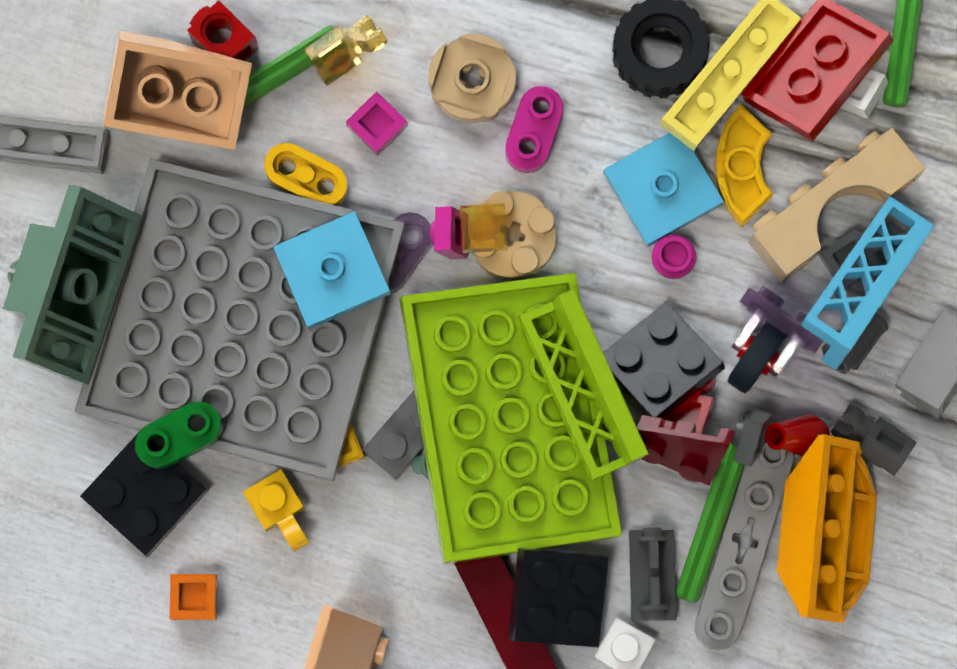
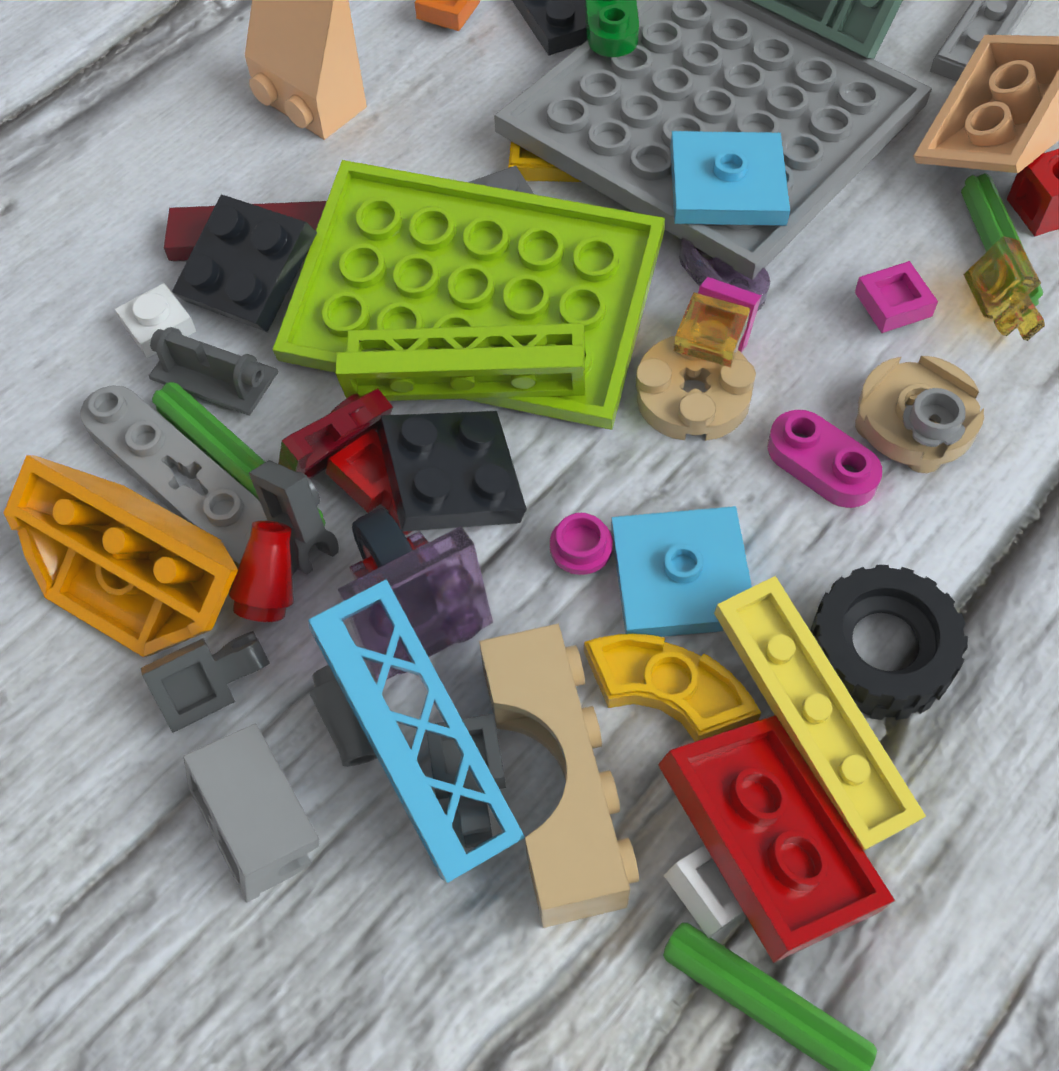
camera: 115 degrees right, 20 degrees down
(276, 505) = (491, 90): yellow plate -> none
(307, 176) = (855, 214): yellow plate -> none
(487, 51) = (938, 406): none -> light grey plate

